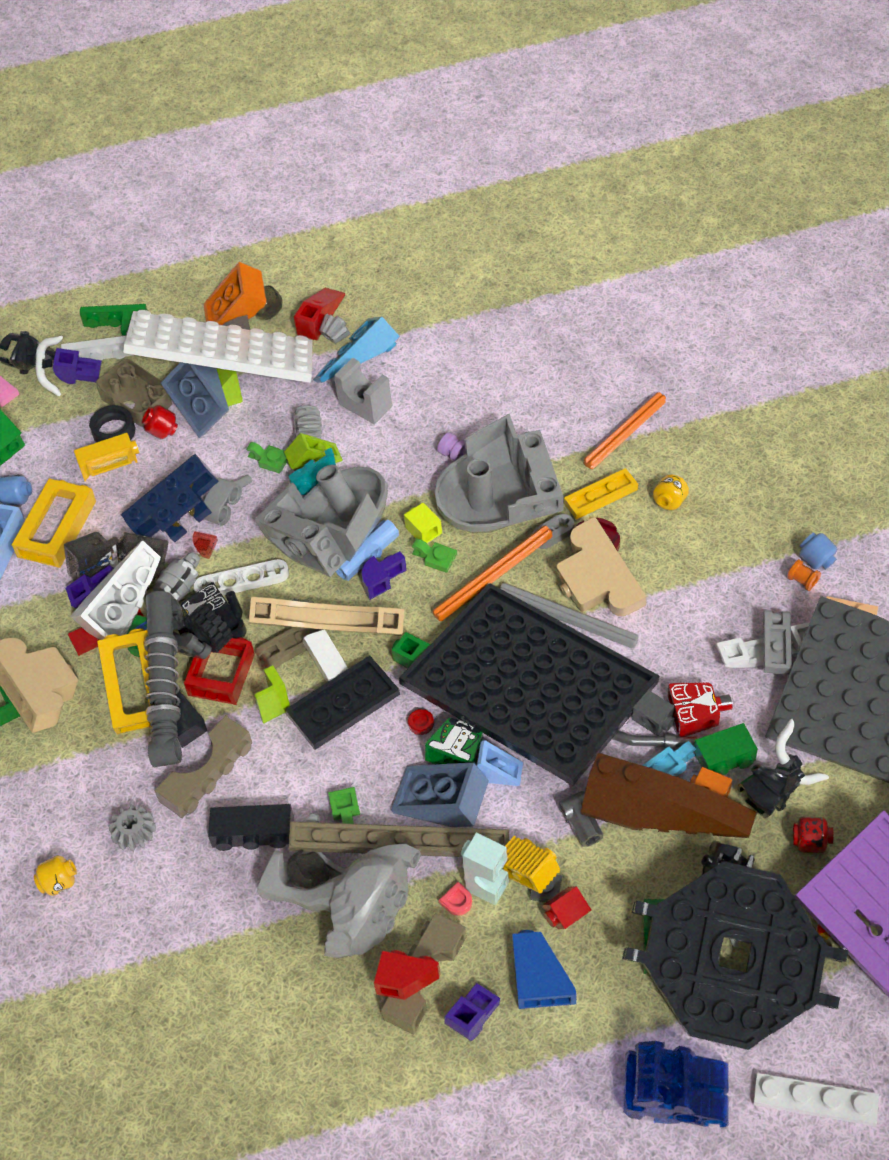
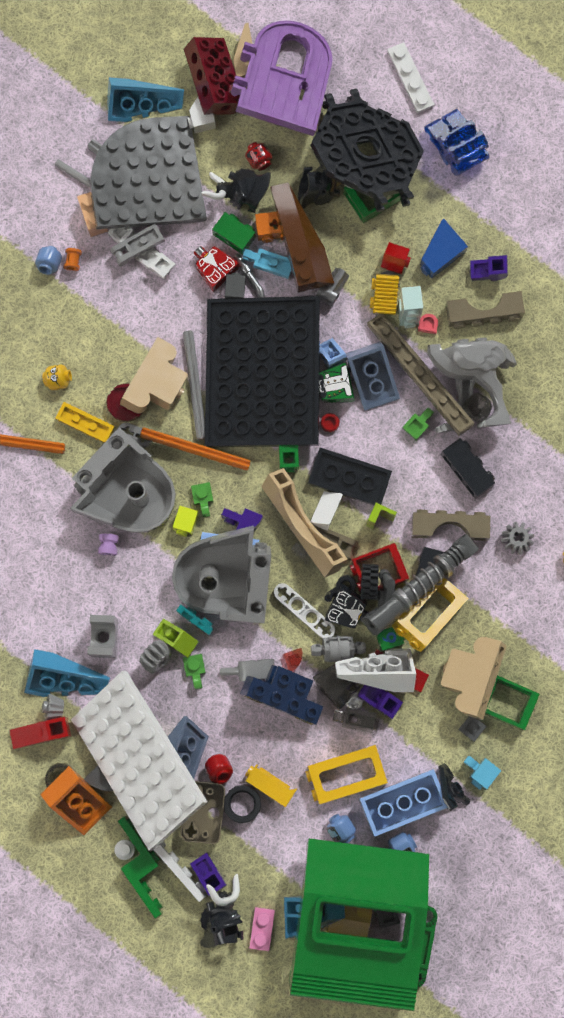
camera: 130 degrees left, 25 degrees up
(404, 975) = (502, 308): red slope -> none

